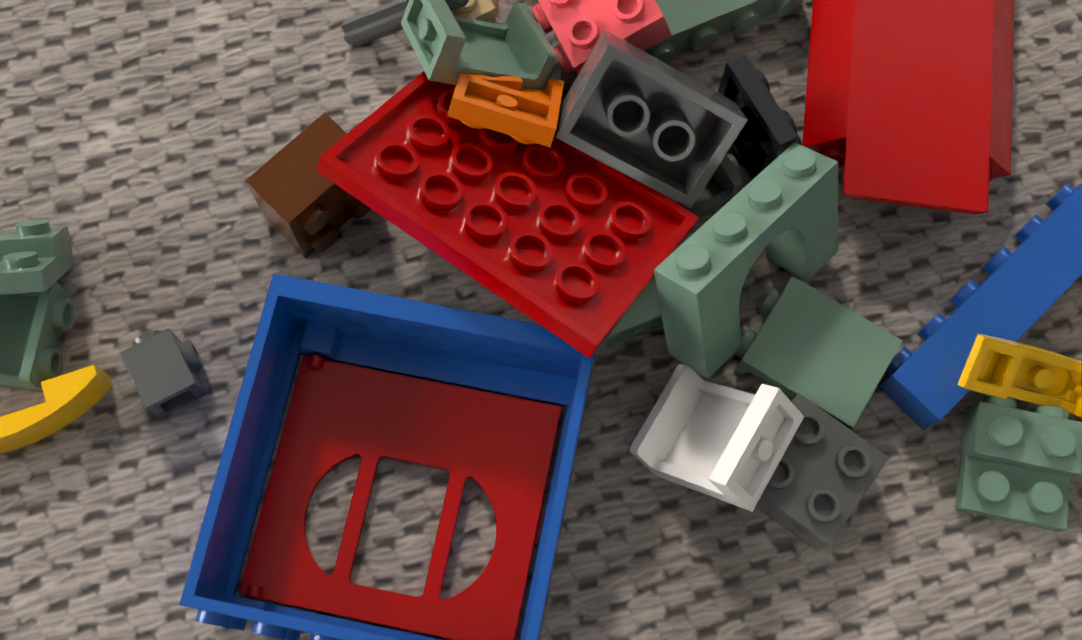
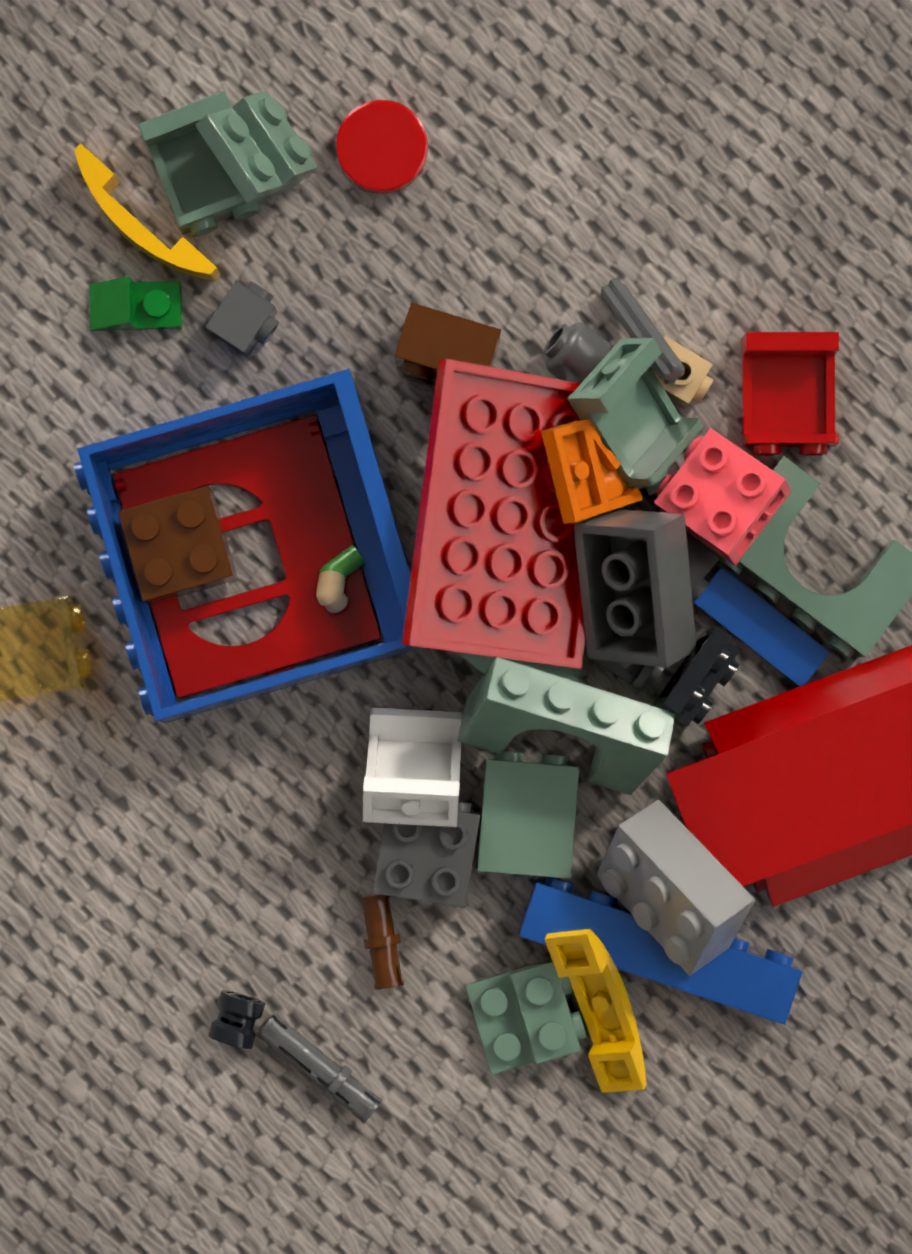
camera: 65 degrees right, 15 degrees up
(77, 485) = (135, 305): none -> green slope
(88, 159) = (382, 146): none -> red tile
(351, 558) = (177, 545): none -> reddish brown brick
(385, 77) = (575, 352): none -> dark grey head
(476, 419) = (332, 579): none -> arm
(768, 49) = (761, 627): none -> blue tile
(878, 570) = (382, 942): none -> reddish brown pin
(967, 236) = (674, 887): none -> light grey brick

